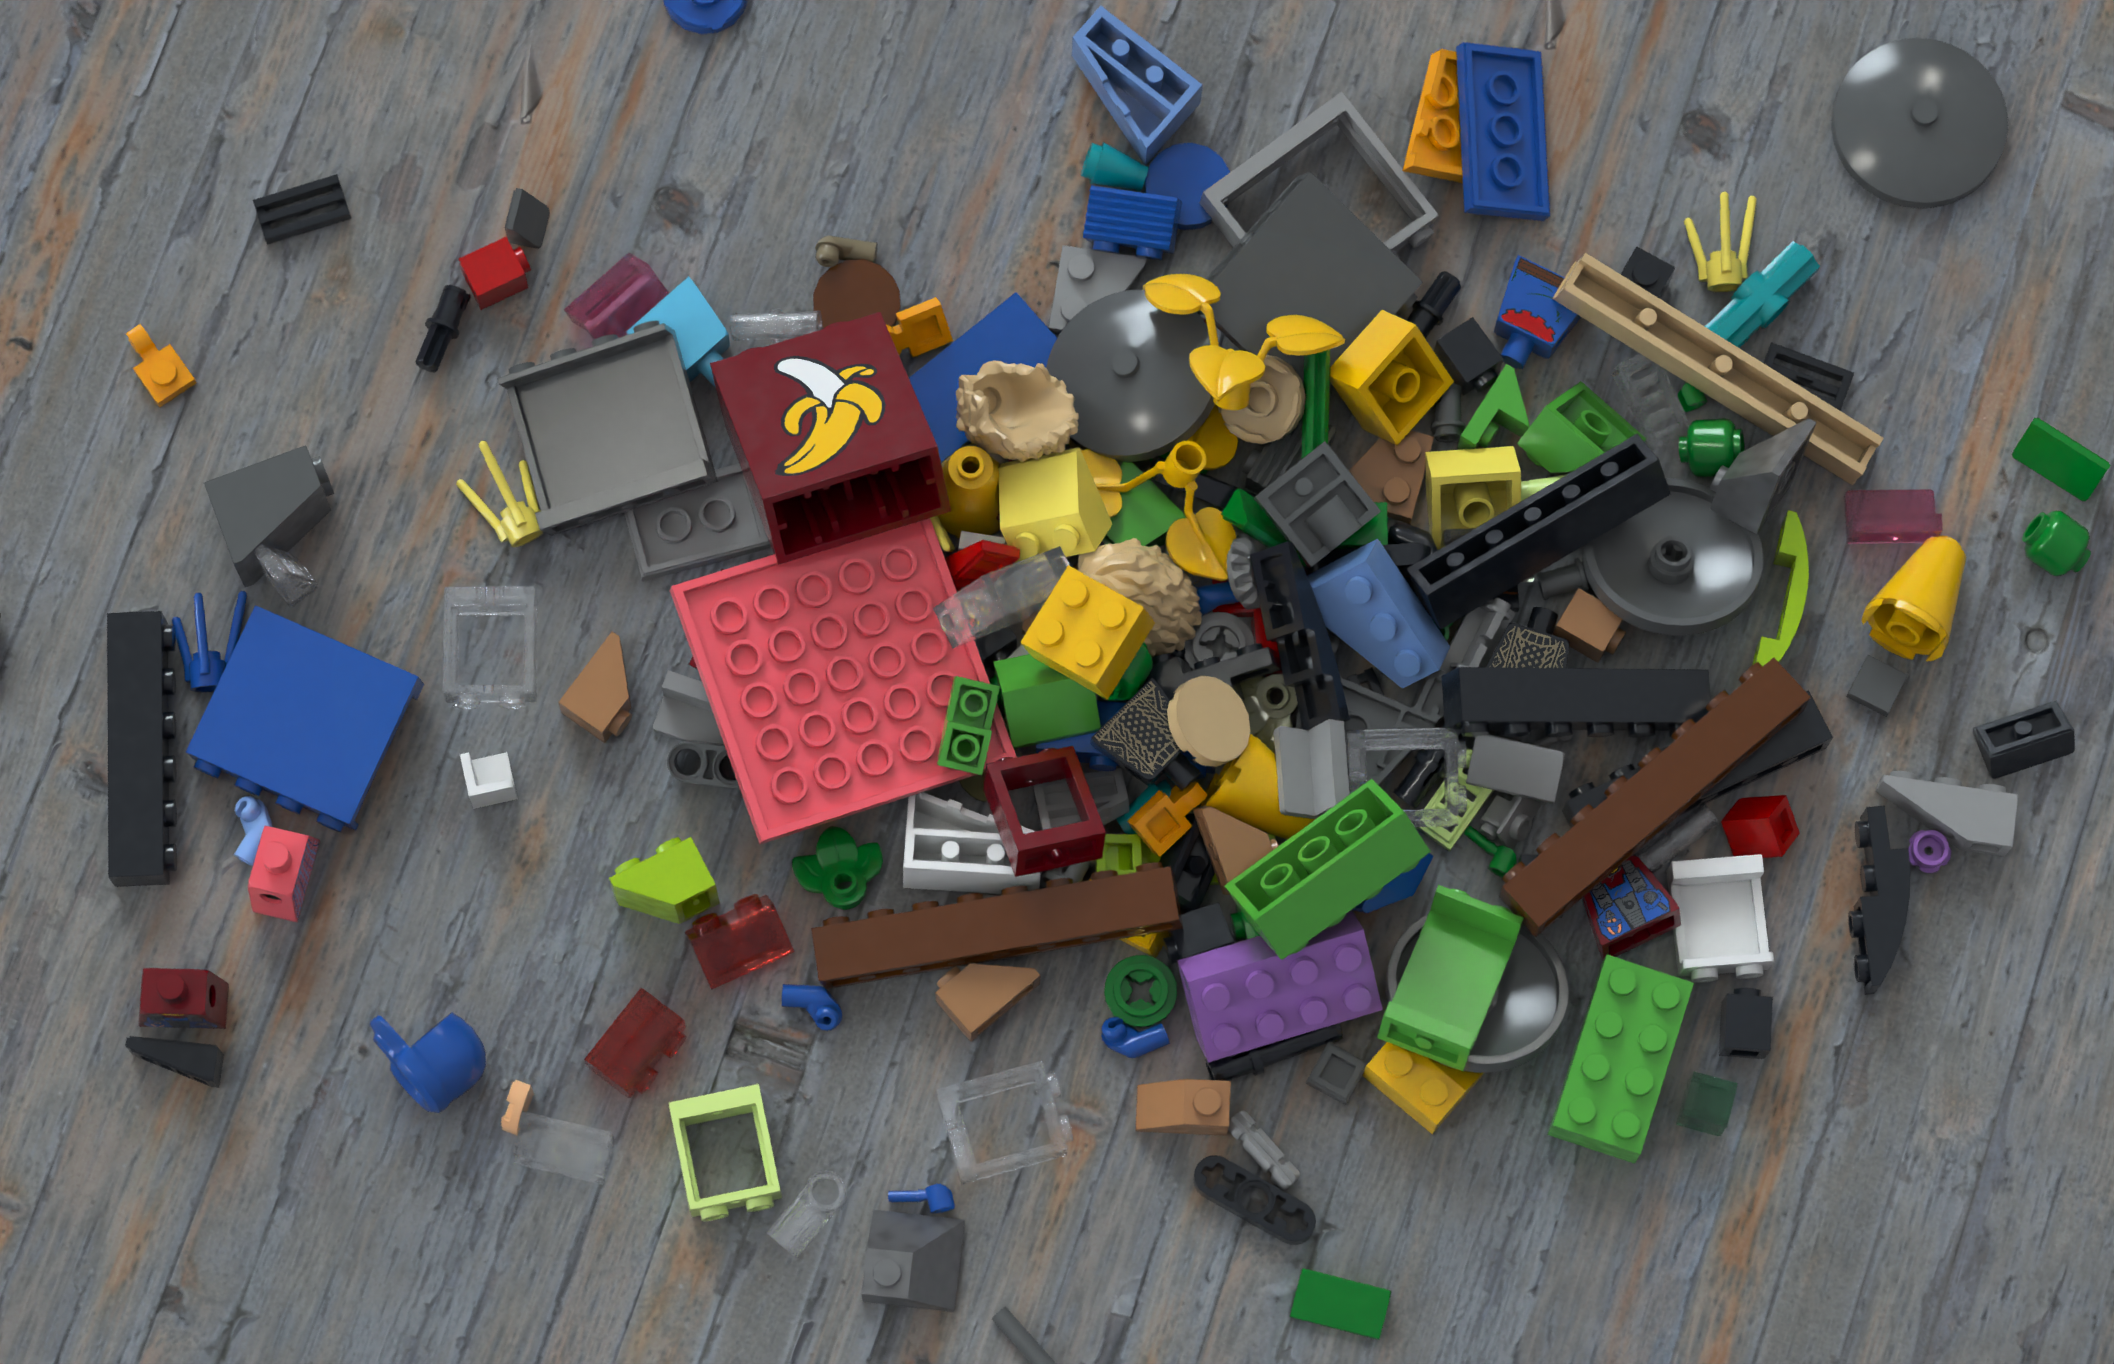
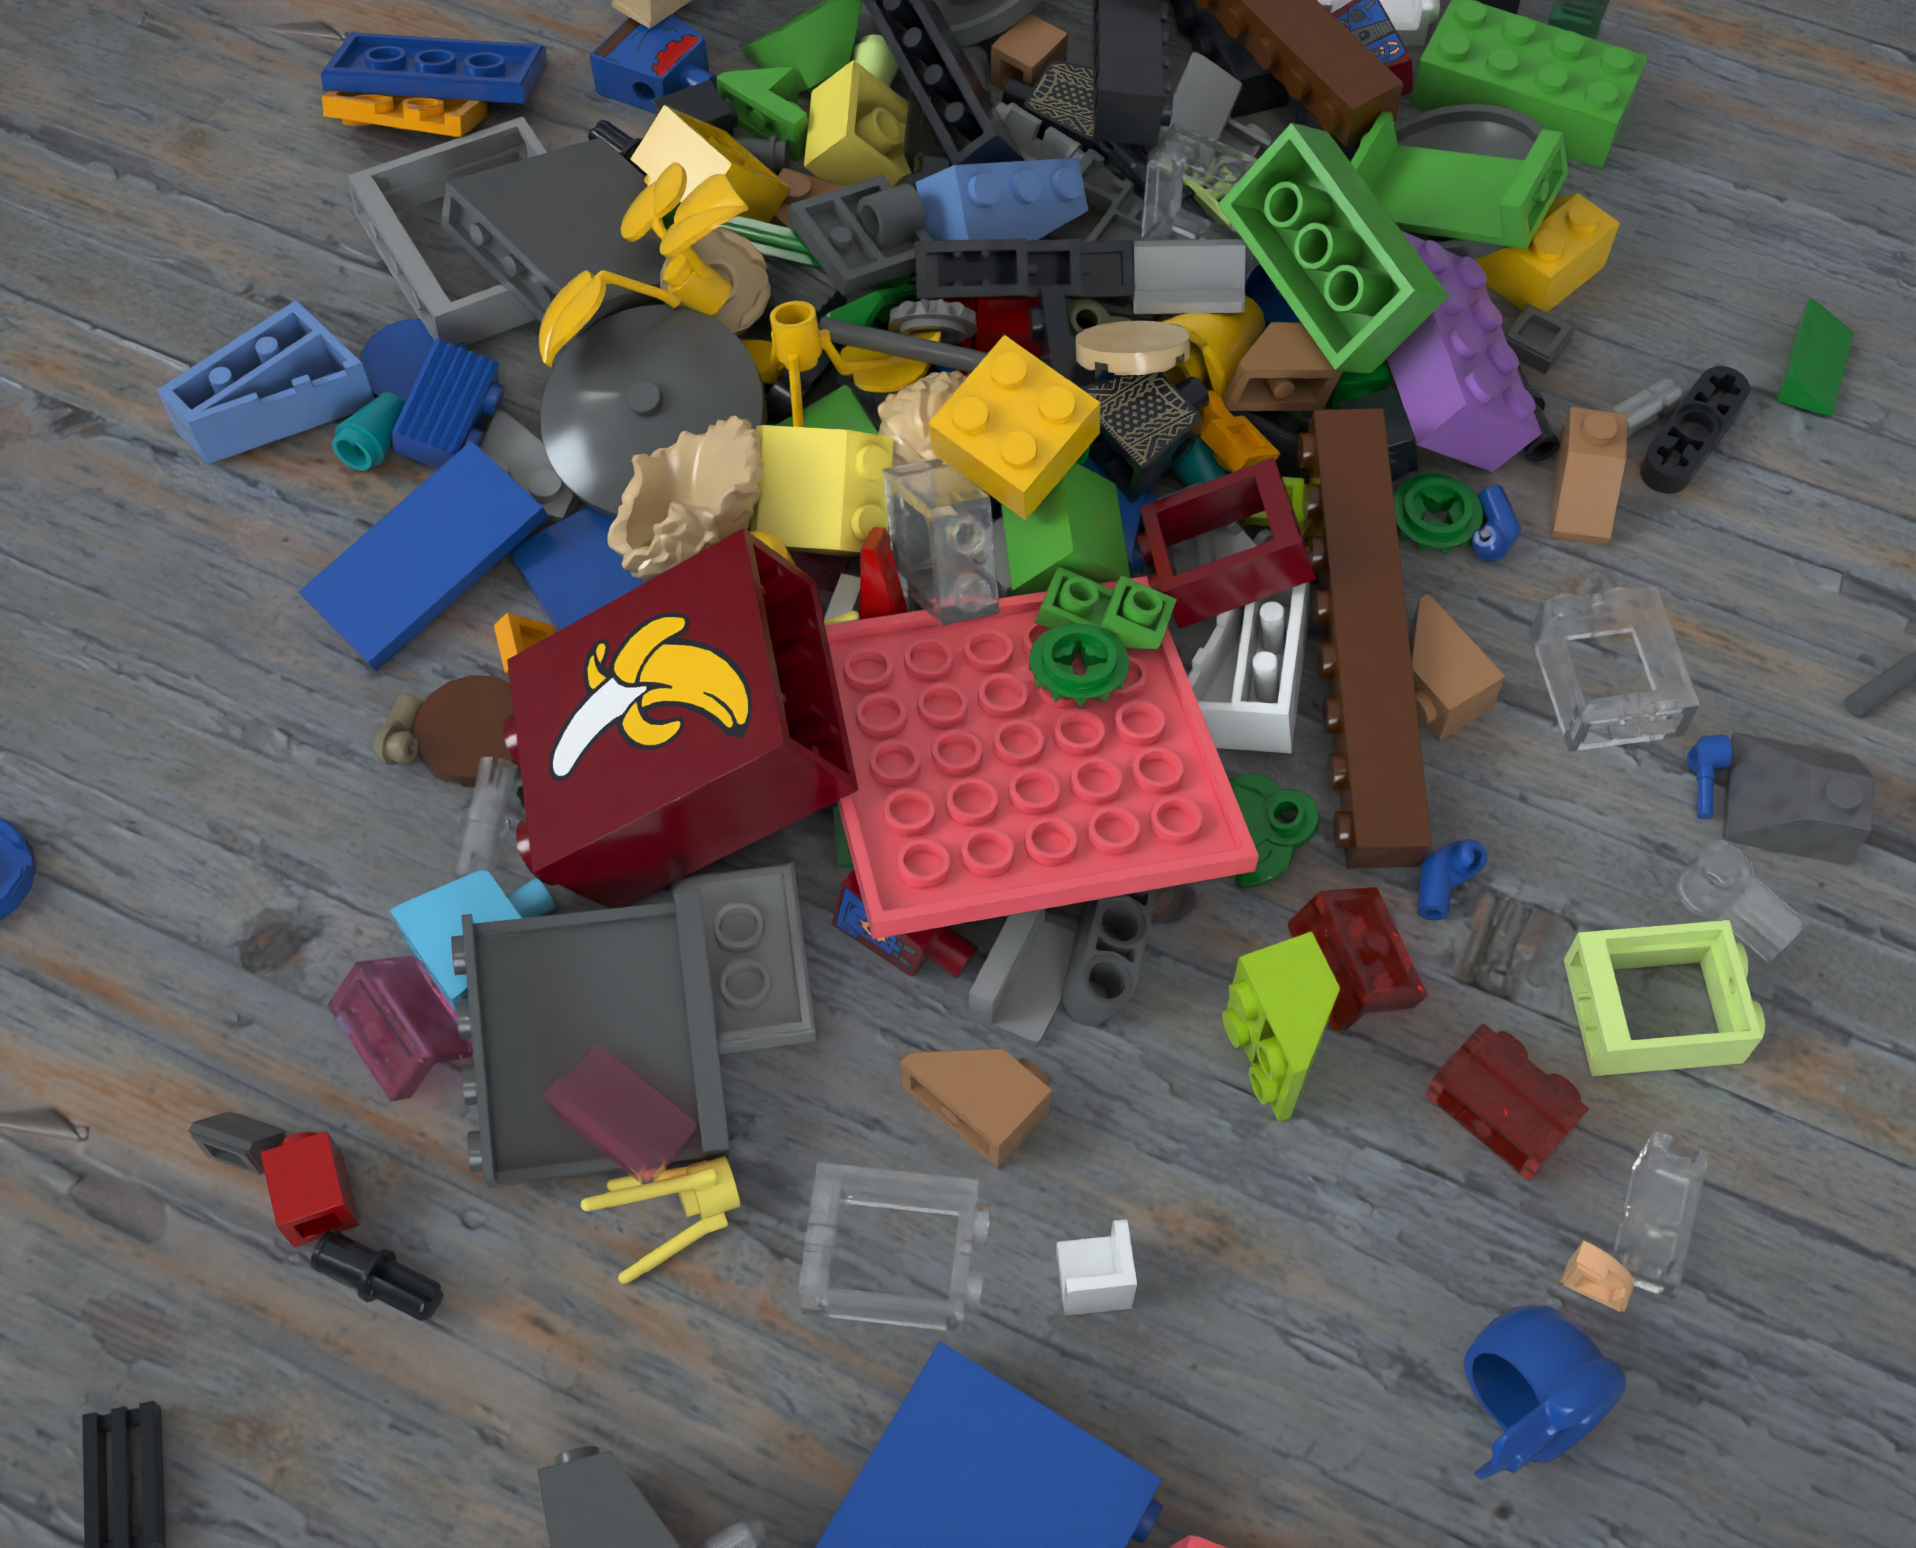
camera: 80 degrees left, 15 degrees down
(554, 455) = (620, 1115): none -> clear pink panel
(924, 692) = (1101, 655): none -> green gear
(999, 233) = (423, 555): none -> blue tile
(1199, 572) = (902, 345): none -> dark grey bar

